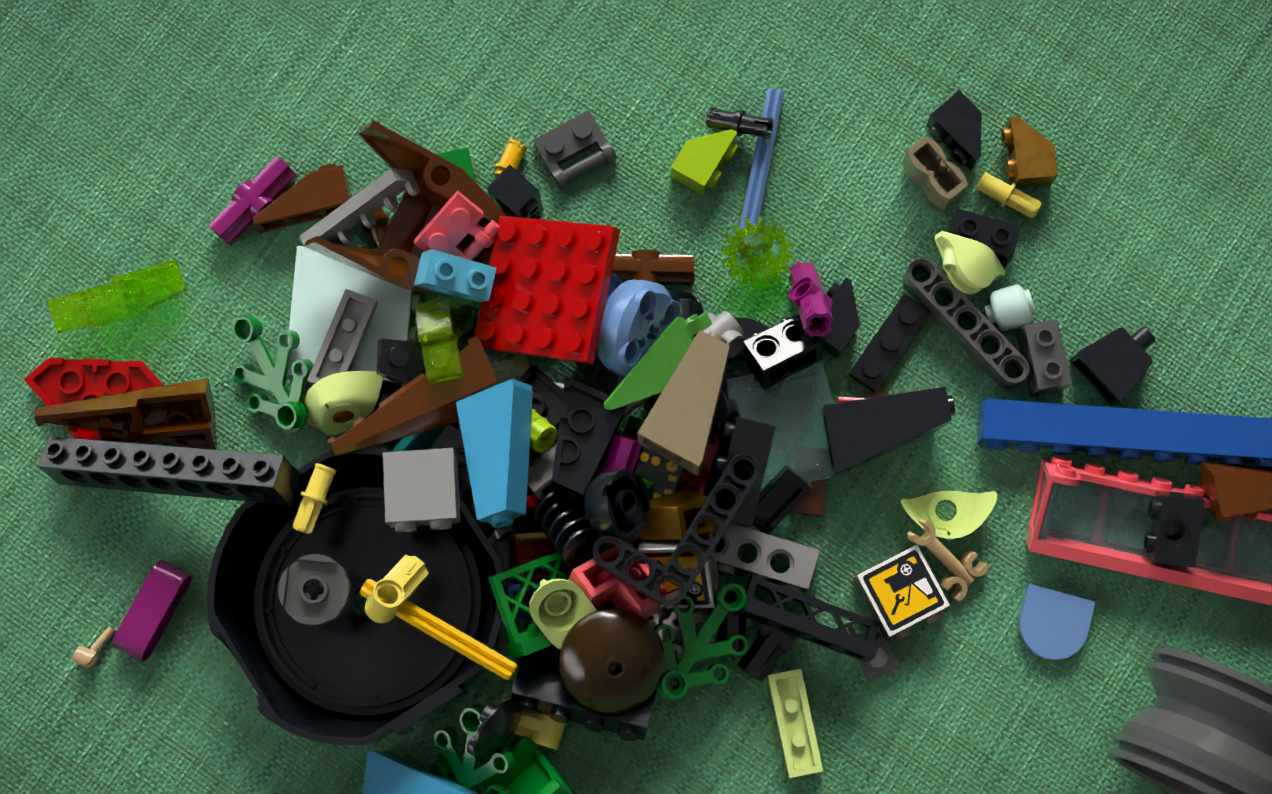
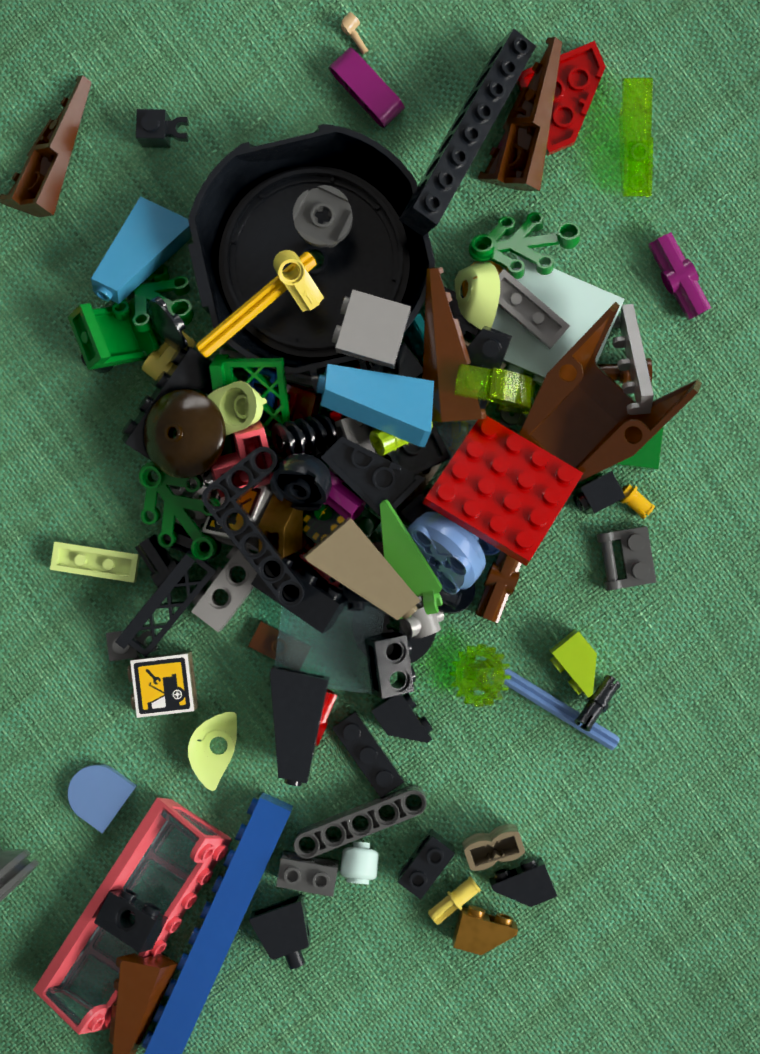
camera: 105 degrees right, 10 degrees up
(307, 200) = (663, 328): reddish brown slope -> none
(313, 498) = (397, 239): light yellow axle -> none
(452, 224) = (588, 428): coral plate -> none
(455, 276) = (541, 417): medium azure brick -> none
(779, 498) = (272, 618): black tile -> none
(811, 300) = (421, 703): magenta piece -> none
(962, 571) = (163, 738): tan bar -> none
(968, 262) = (406, 843): yellowish green hat -> none

